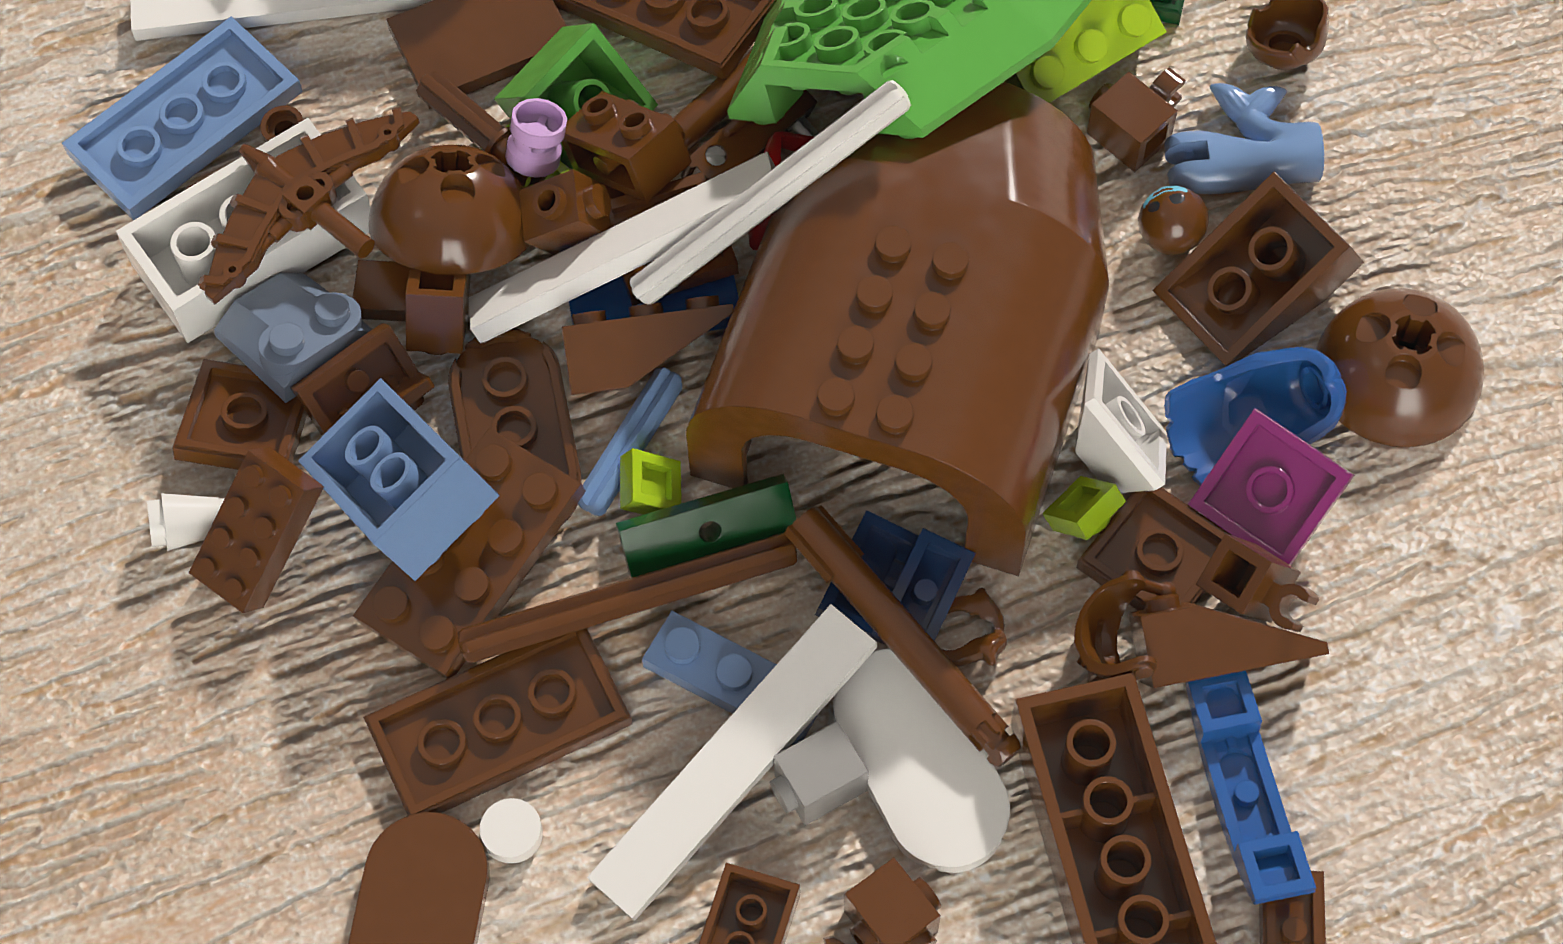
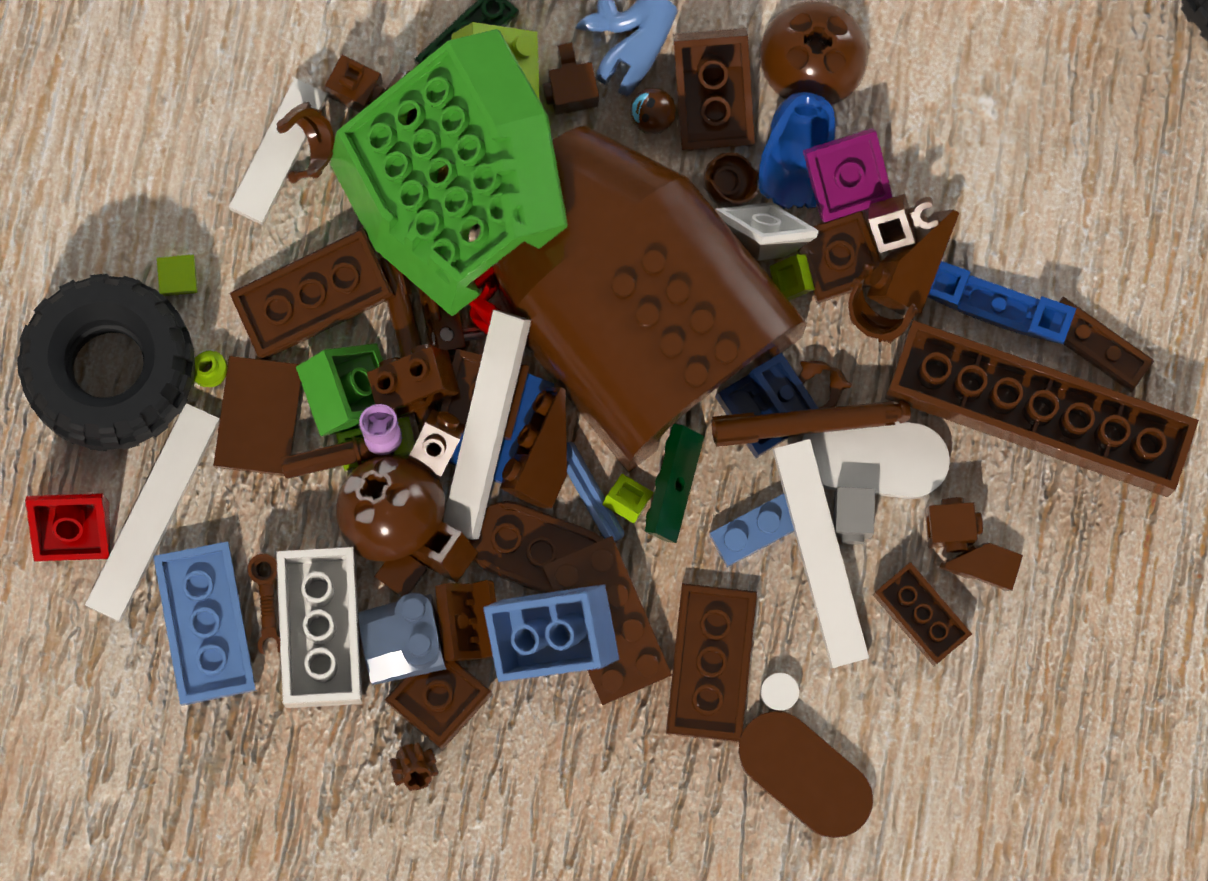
camera: 65 degrees left, 15 degrees up
(132, 437) = (413, 766): none -> reddish brown gear
(181, 519) = (483, 764): white cone -> none
(256, 529) = (526, 728): reddish brown piece -> none
(297, 194) = (330, 586): reddish brown bar -> none
(626, 597) = (690, 551): reddish brown axle -> none
(771, 192) = (533, 327): white axle -> none
(1155, 357) = (731, 180): none -> reddish brown hair

